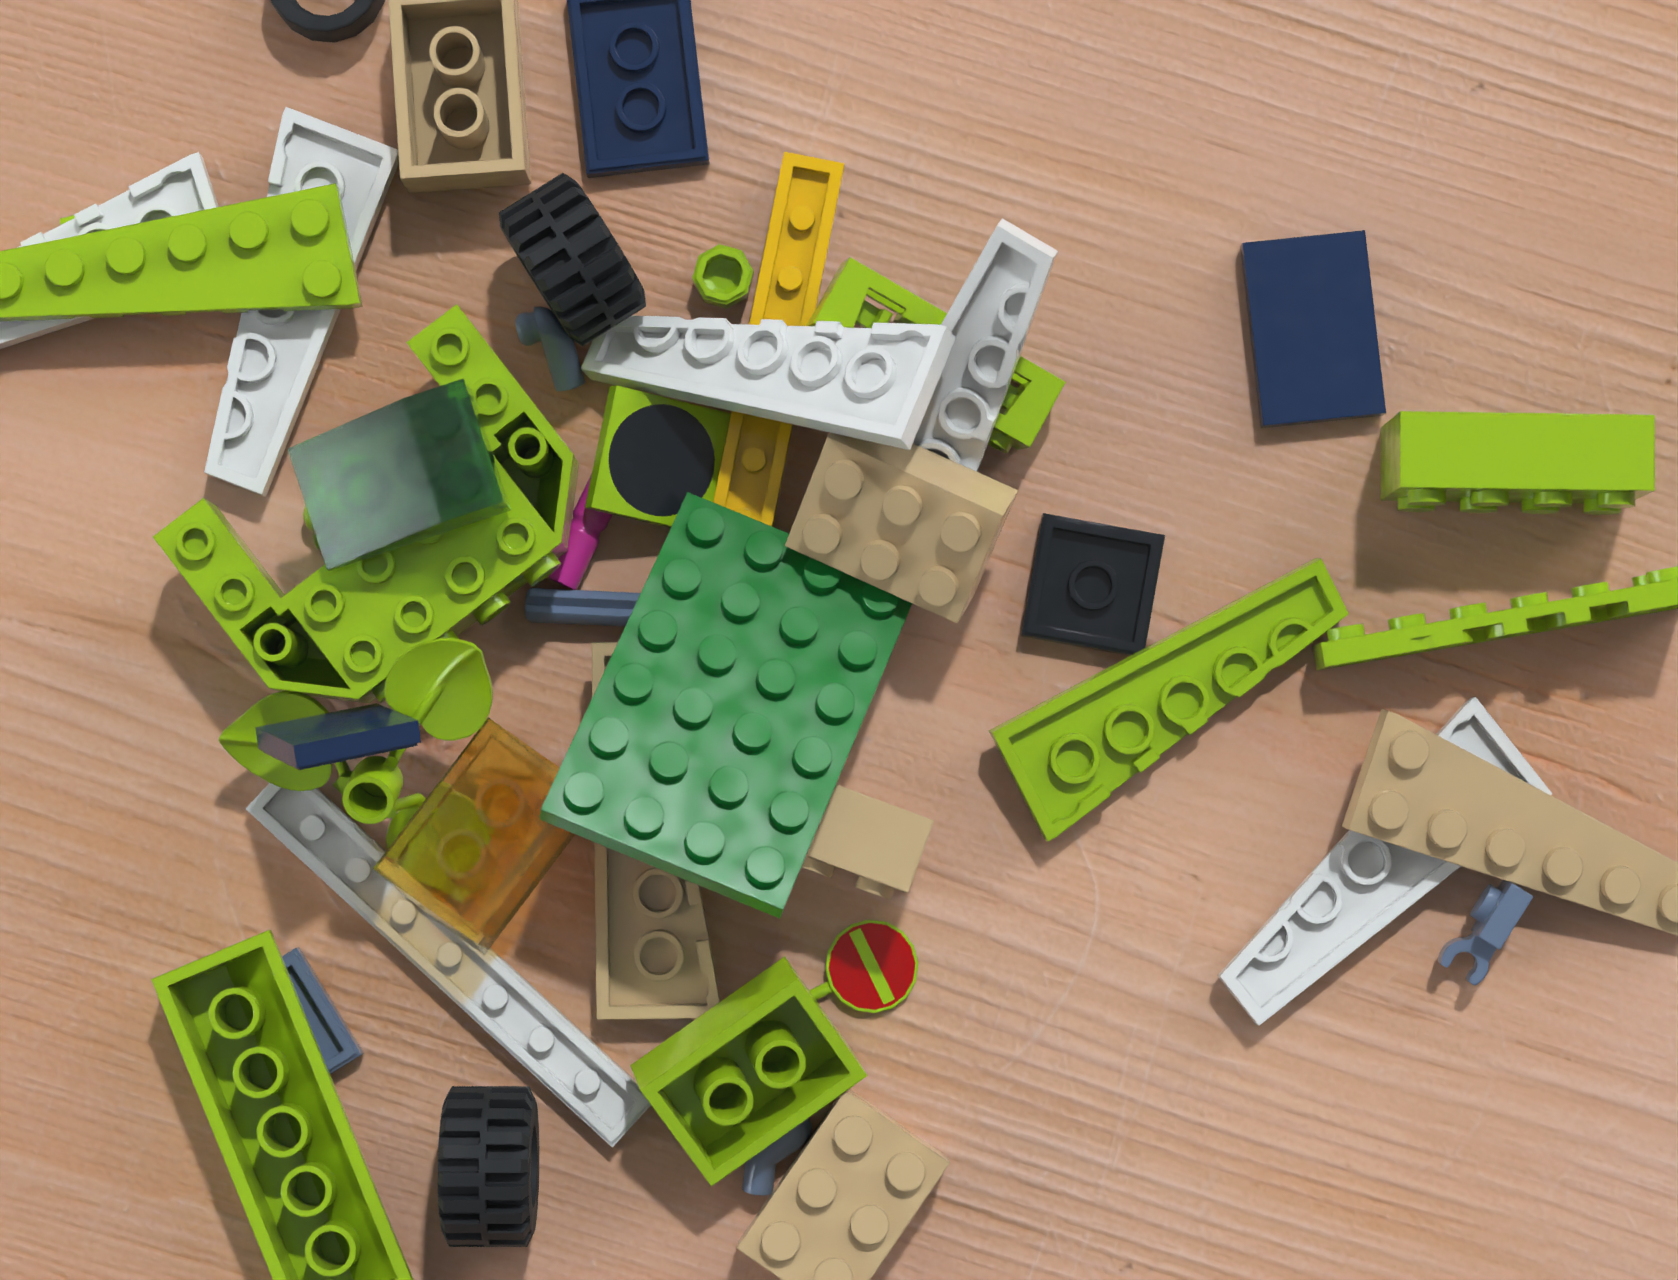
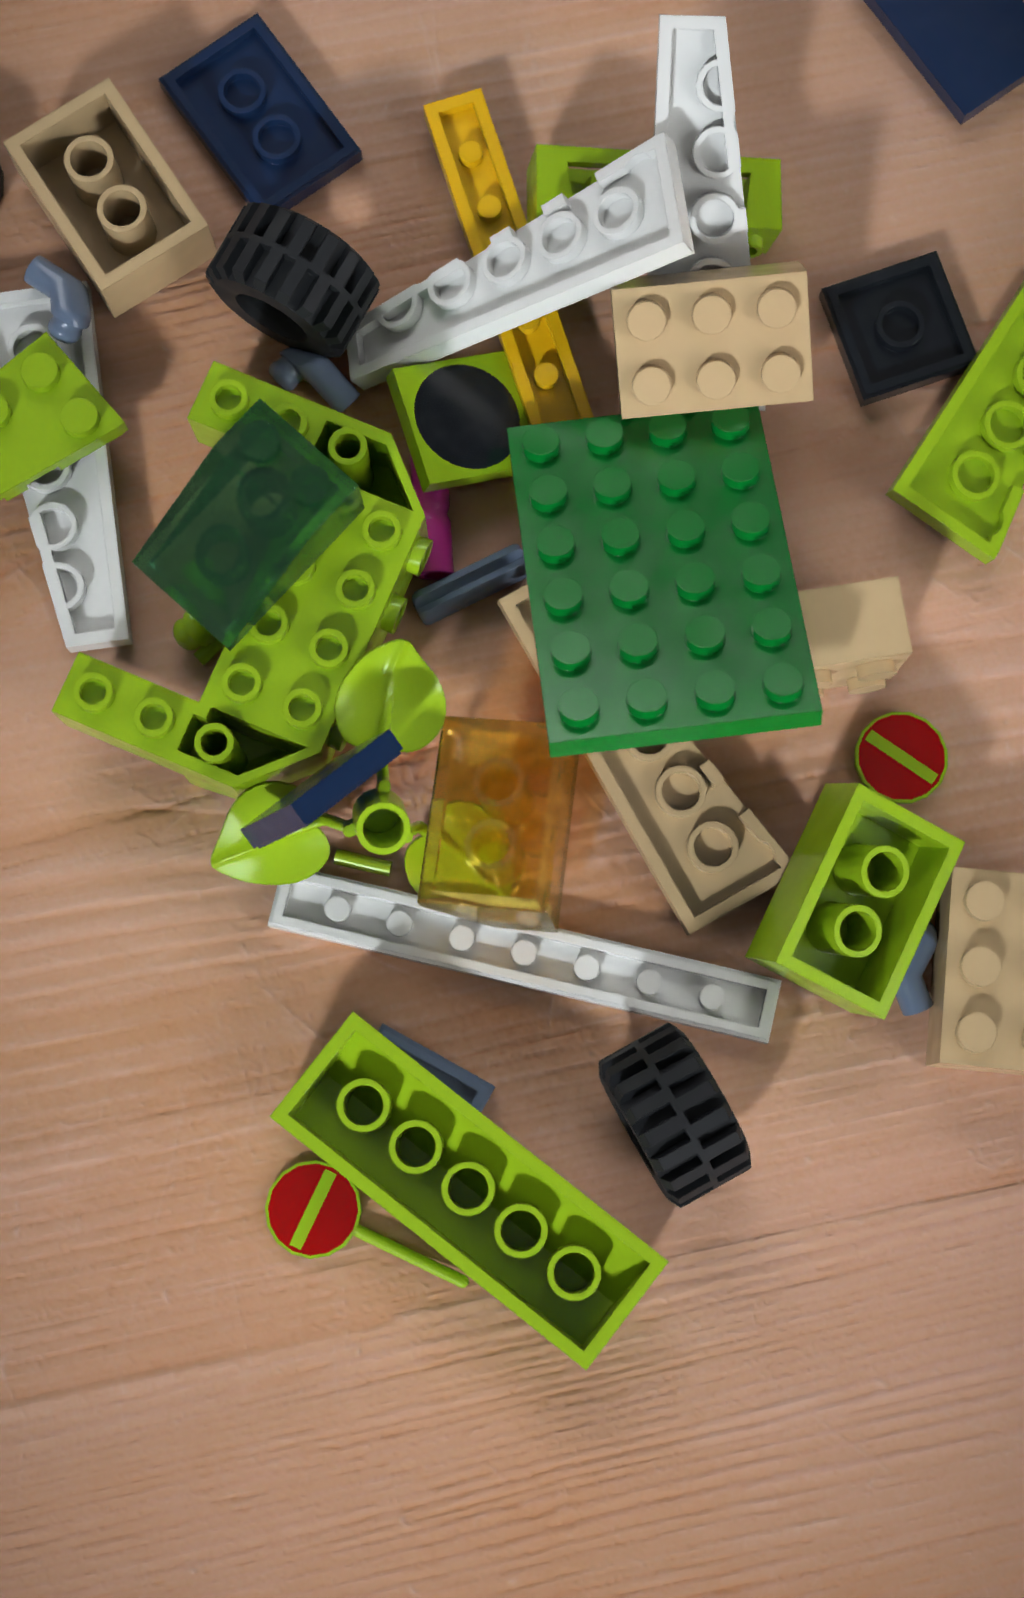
camera: 25 degrees left, 5 degrees down
(153, 1081) = (319, 1211): none -> piece
(371, 163) = (67, 299): none -> sand blue arm
(723, 276) = (429, 239): lime tile -> none

